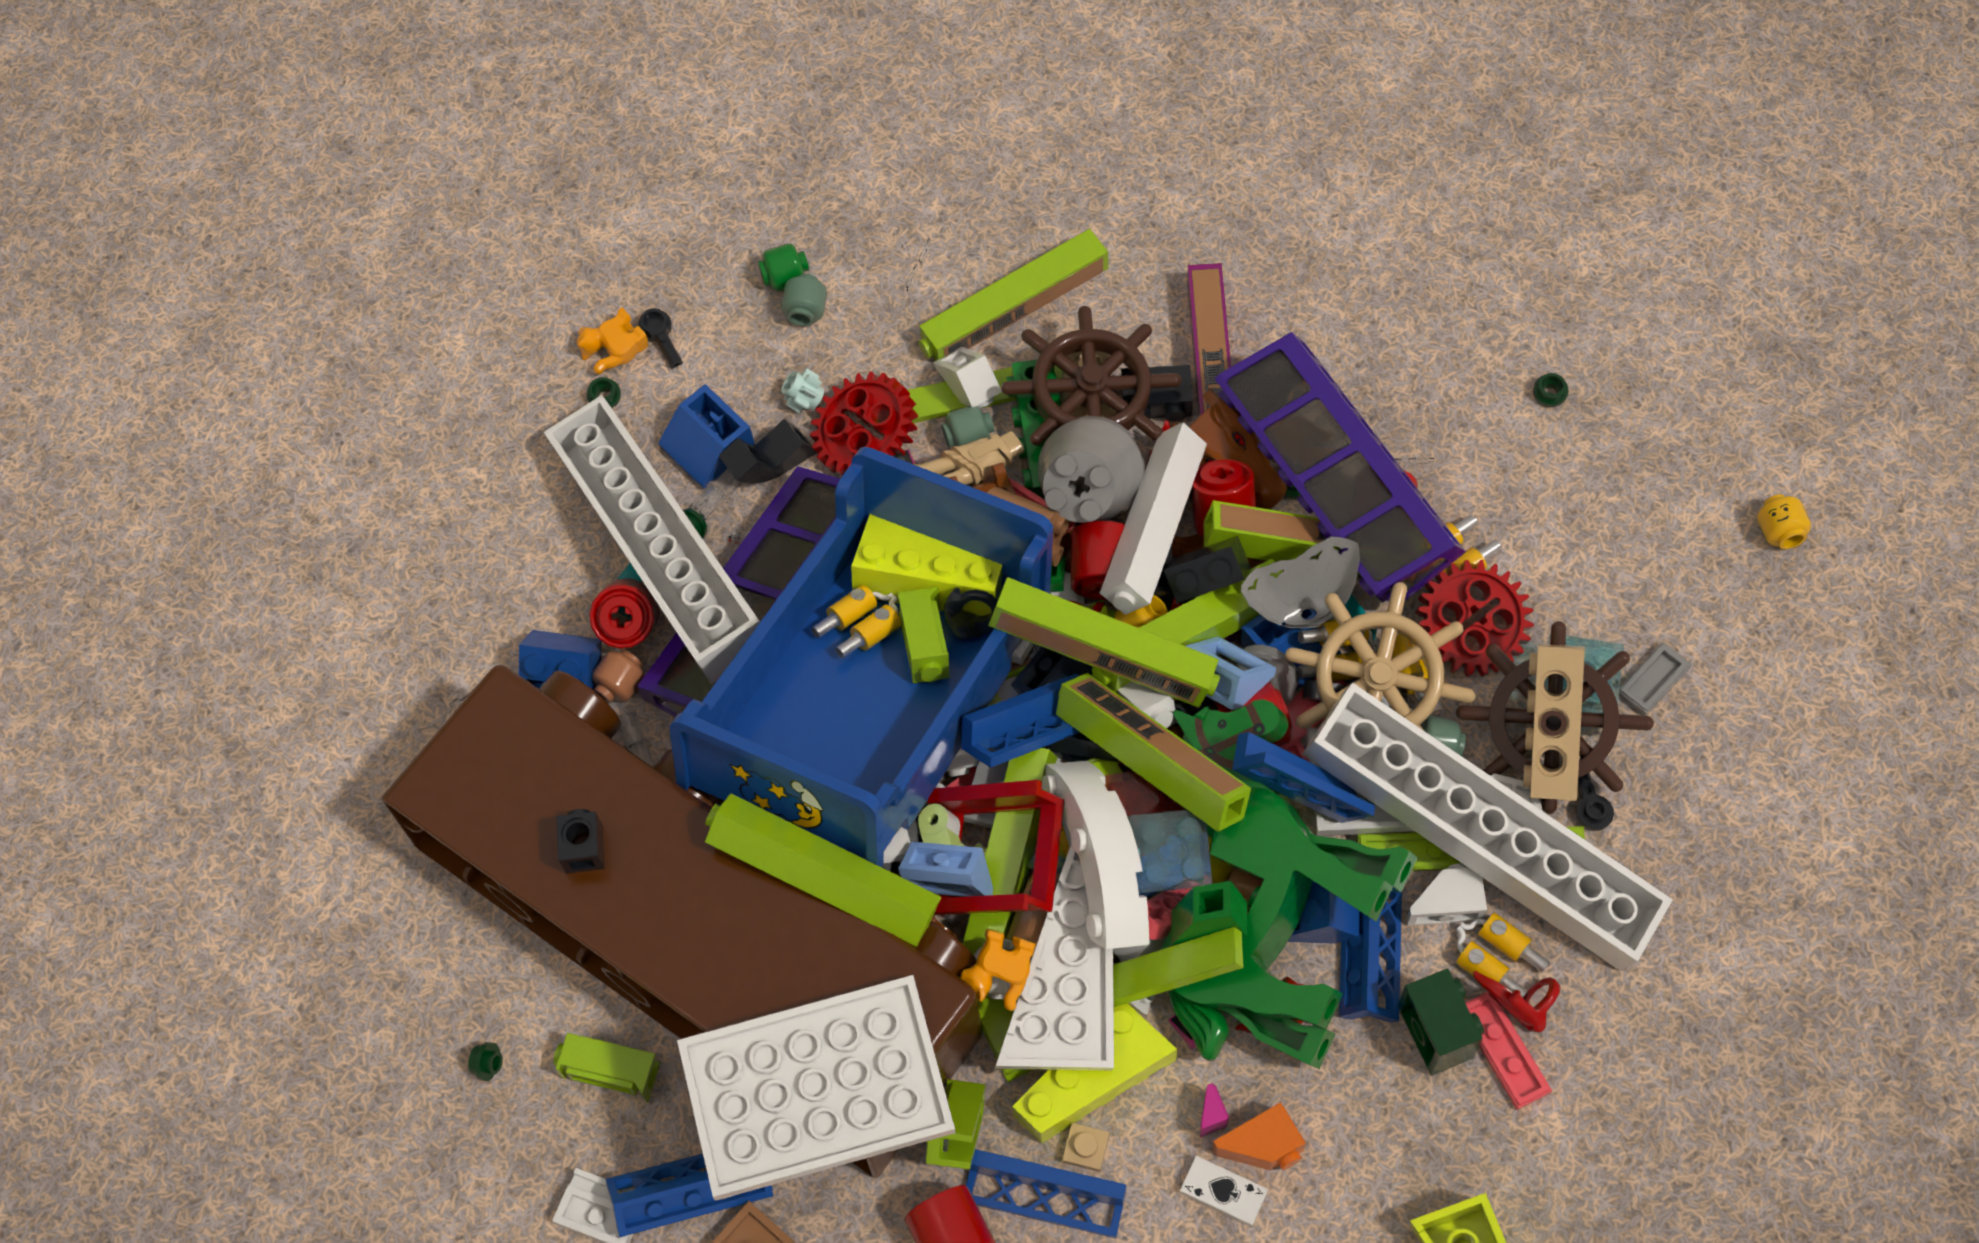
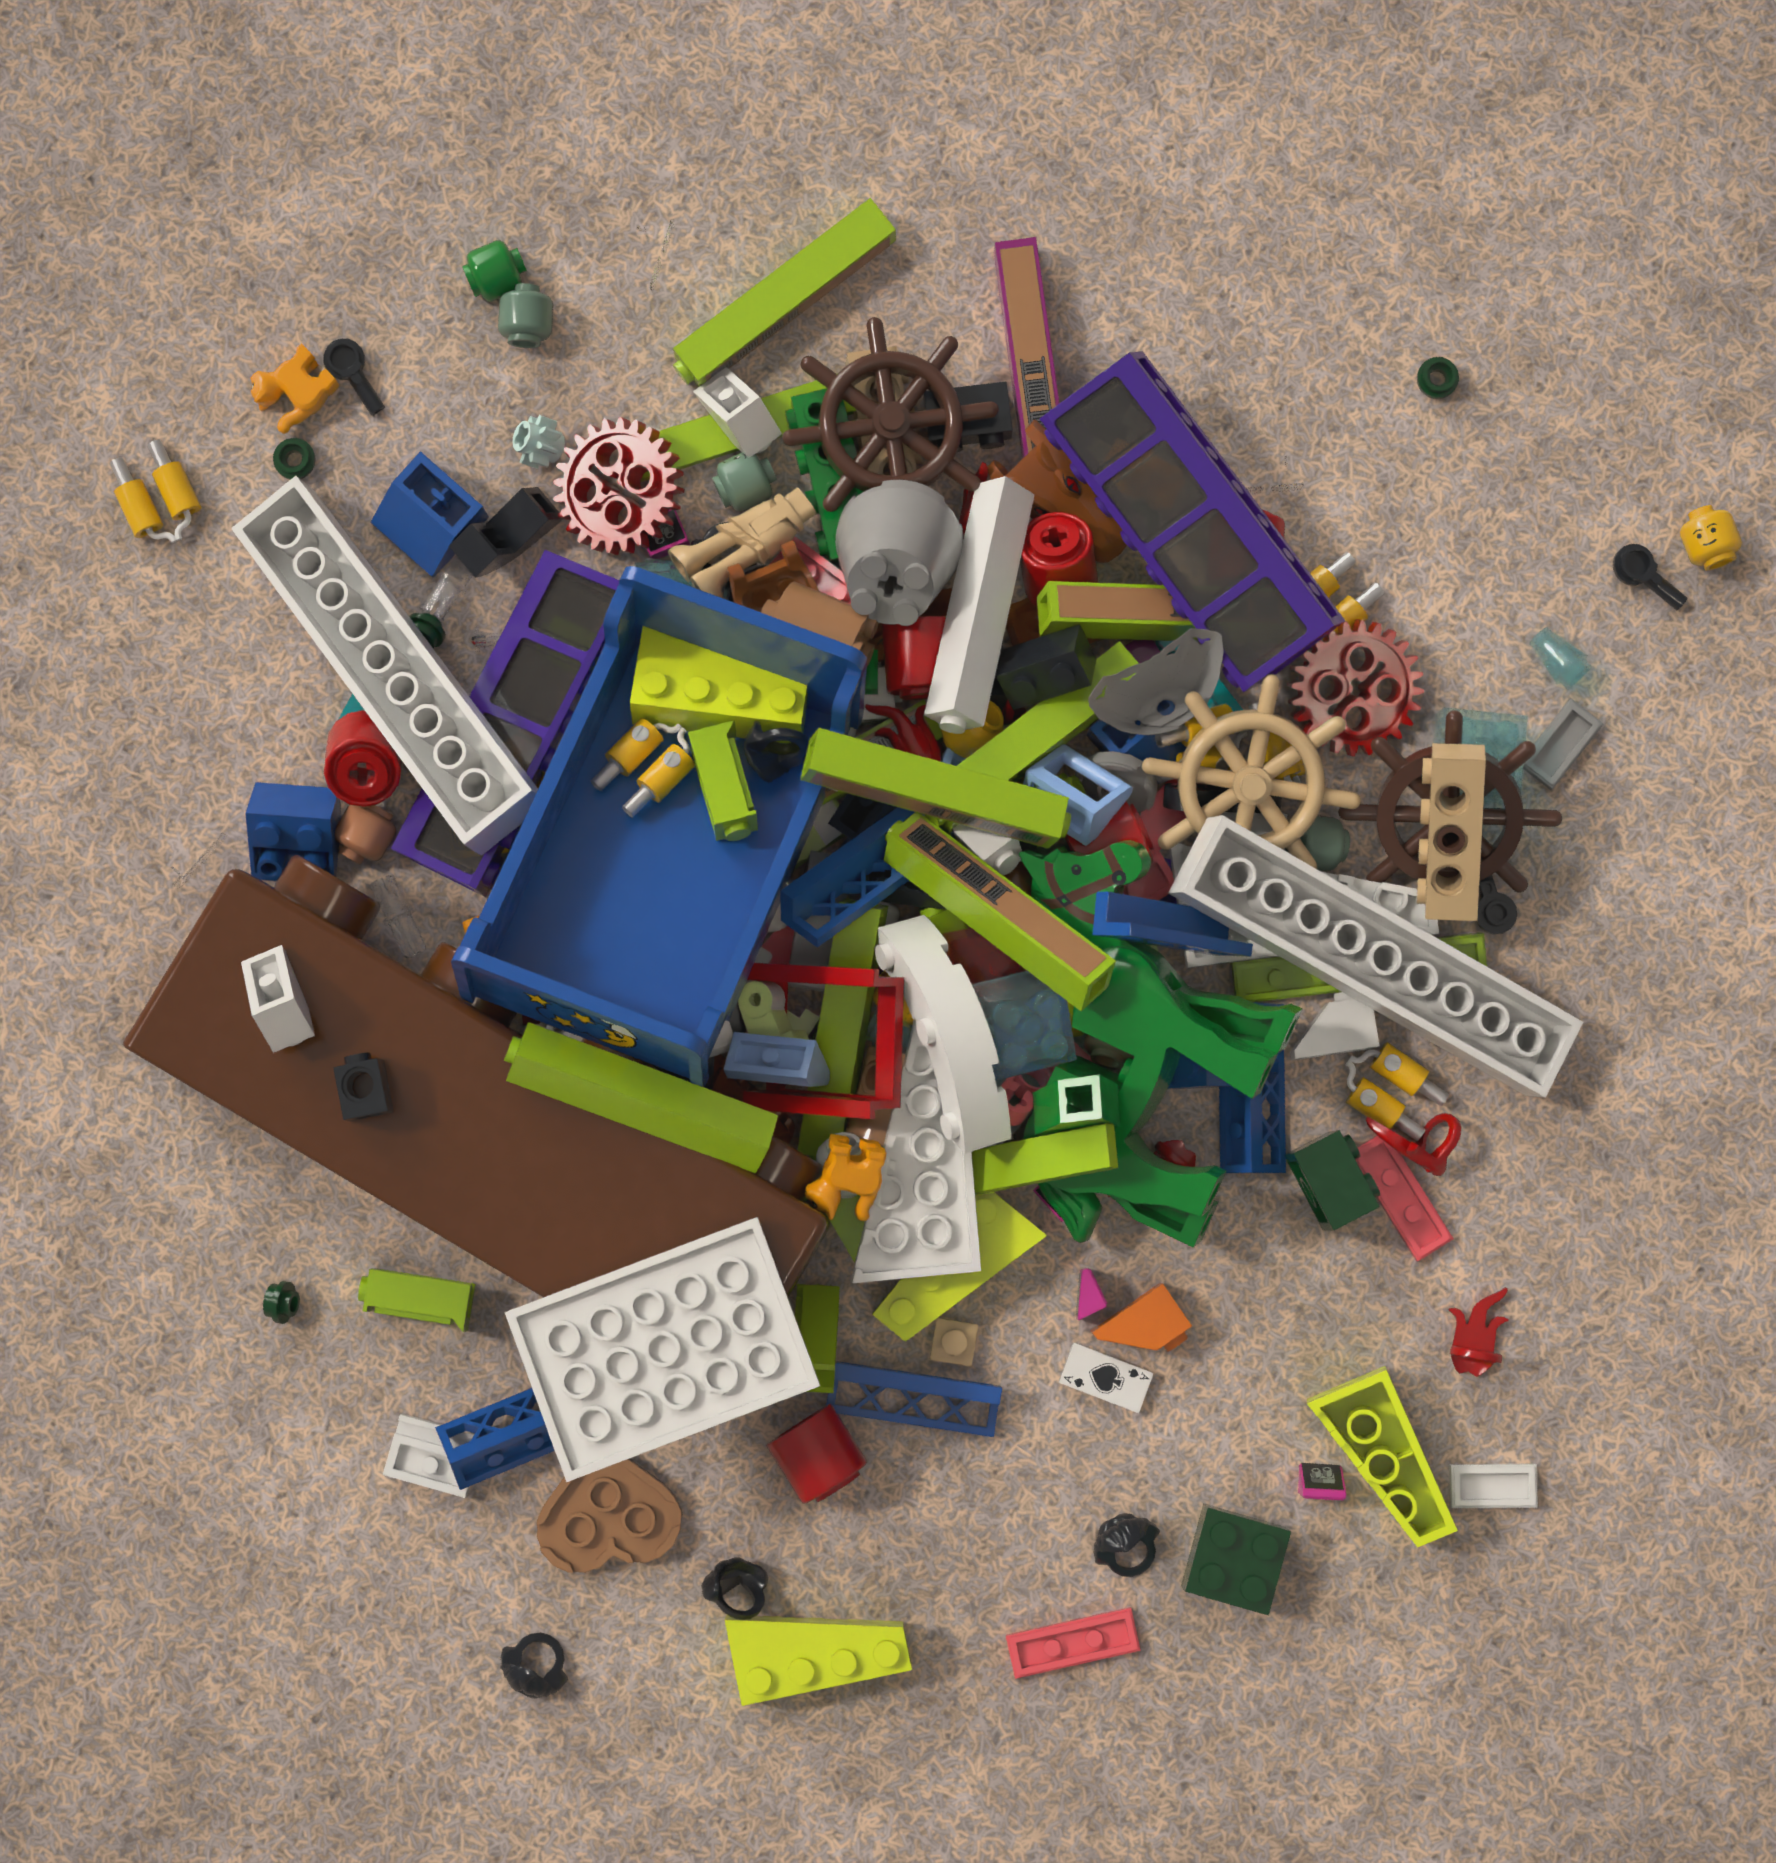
camera: 10 degrees left, 20 degrees up
(473, 419) = (174, 489): none -> yellow piece
(518, 764) = (277, 999): none -> white slope
(1569, 1189) = (1473, 1342): none -> red piece
(1654, 609) = (1561, 659): none -> clear light blue cone
(1720, 542) = (1636, 565): none -> black plate

